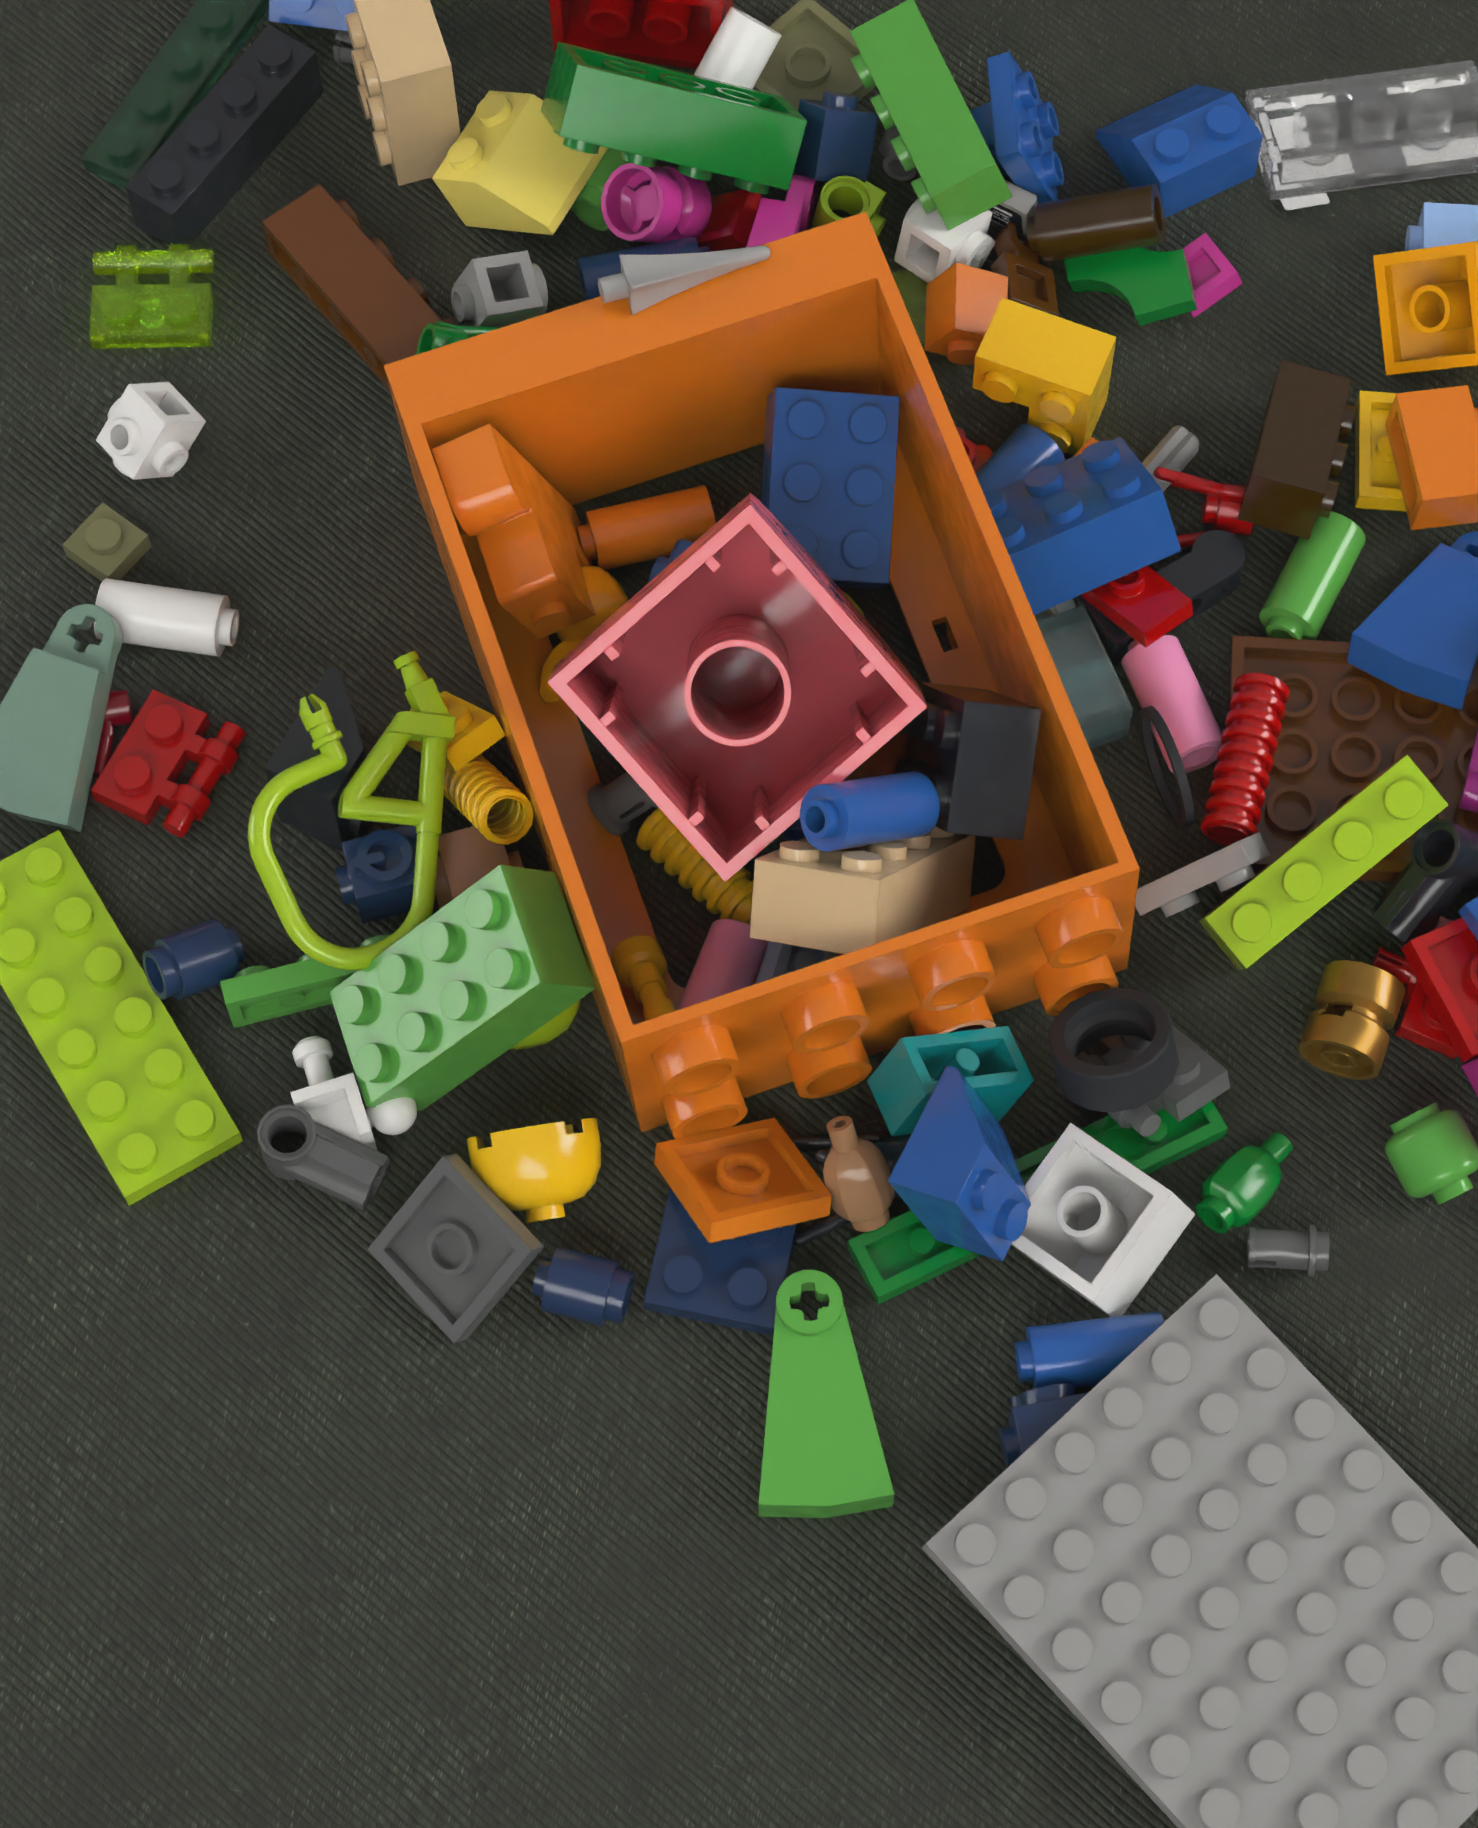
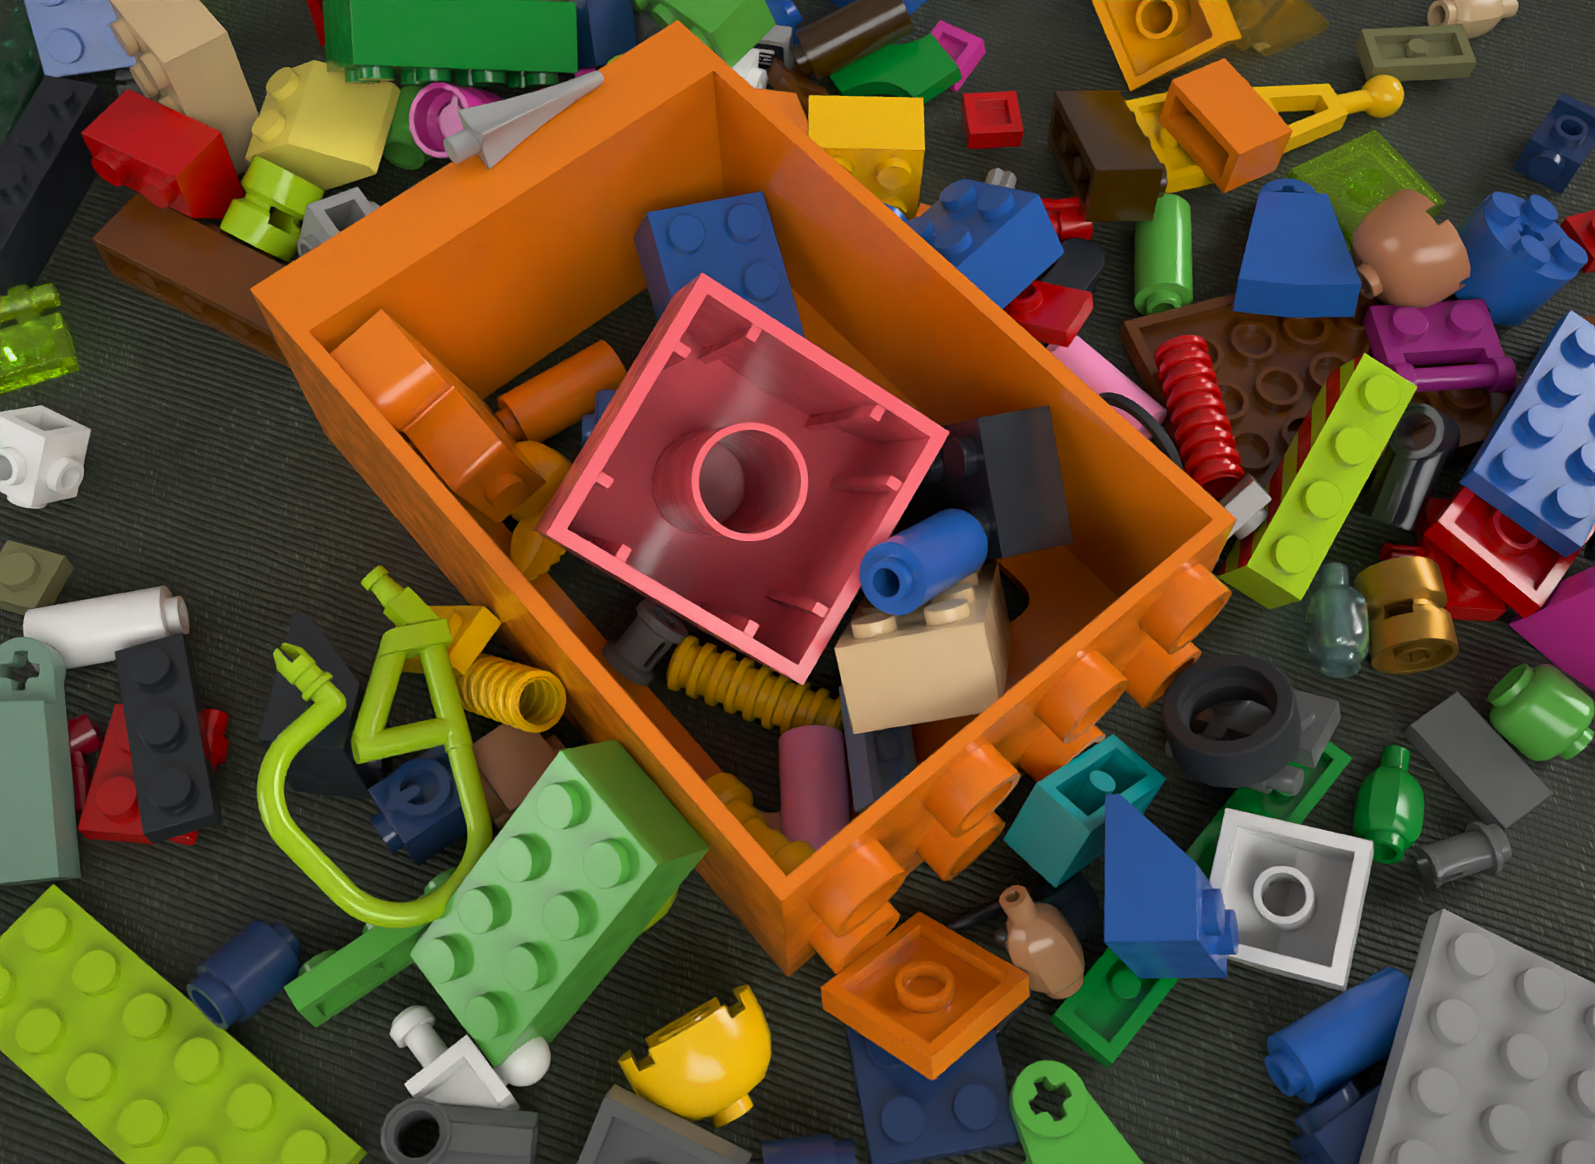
camera: 25 degrees left, 5 degrees down
(189, 735) = (167, 738): none -> black plate
(355, 161) = (163, 156): none -> red slope
(440, 242) = (267, 187): none -> lime wheel
(1211, 365) = (992, 120): none -> red plate
(1284, 1005) = (1337, 624): none -> clear light blue plant
(1353, 1178) = (1477, 762): none -> dark grey tile

